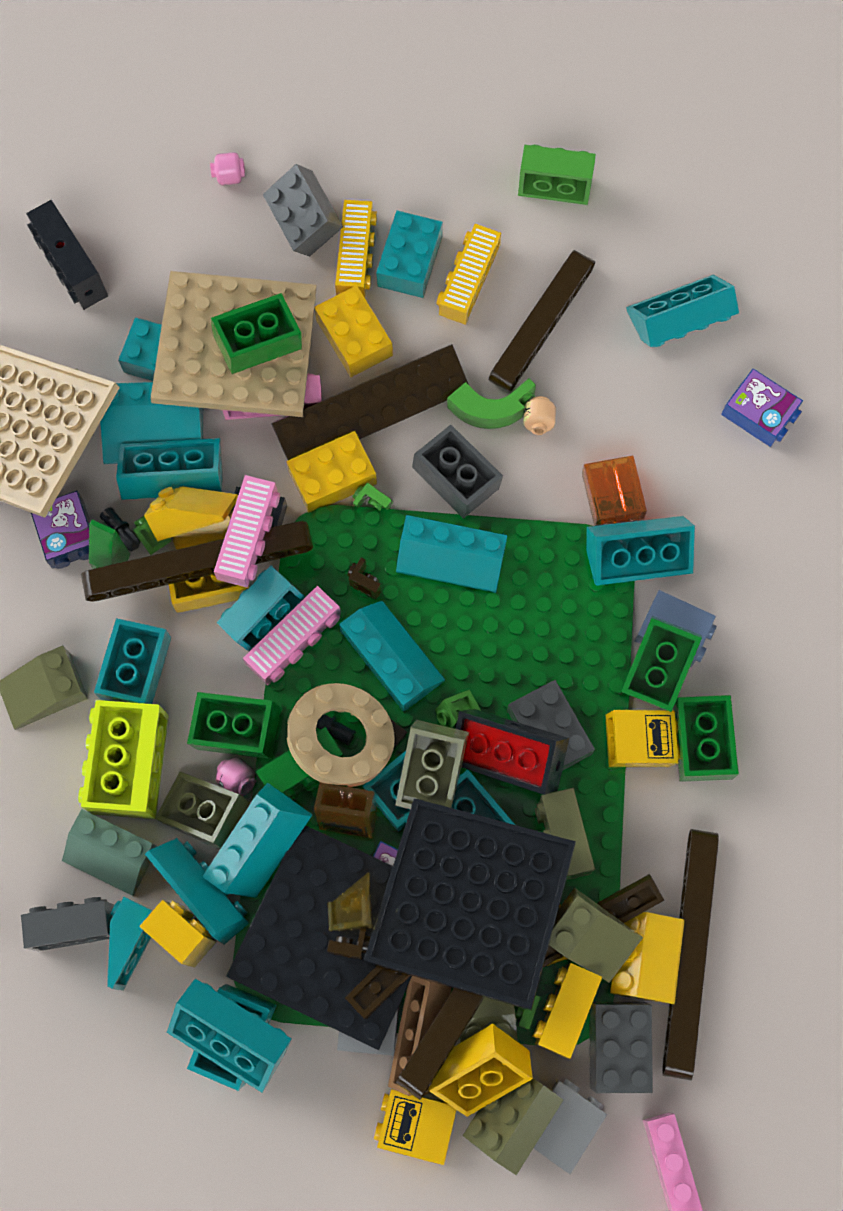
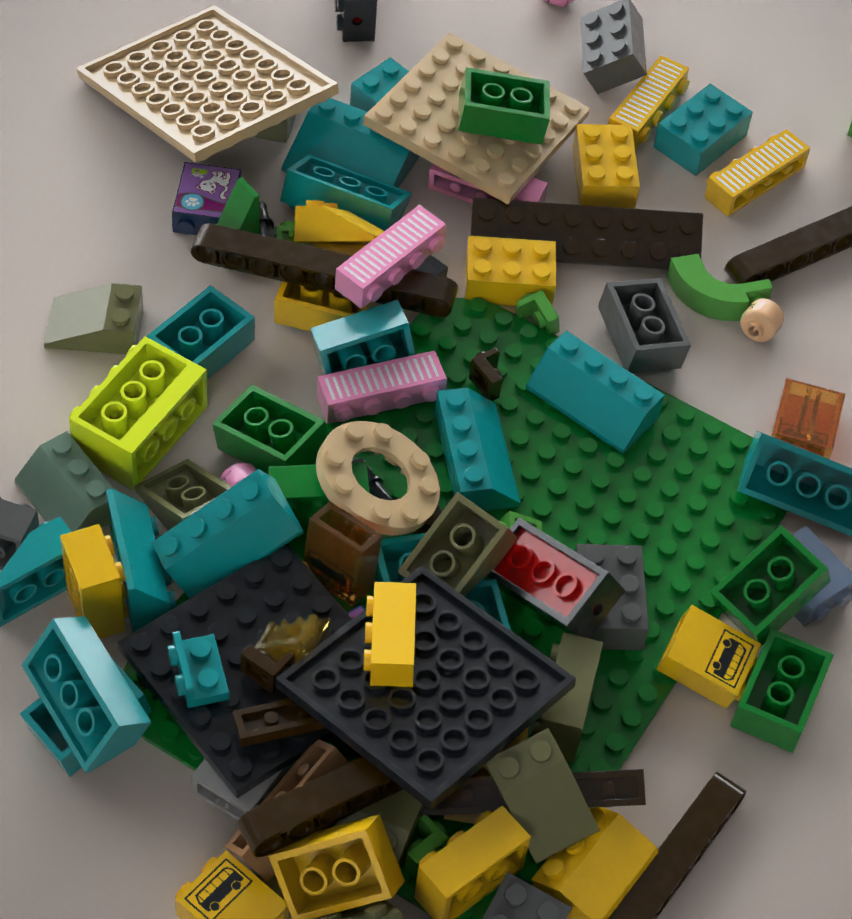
camera: 20 degrees right, 20 degrees down
(299, 972) = (200, 670): none -> teal bracket
(428, 881) = (391, 634): none -> yellow brick

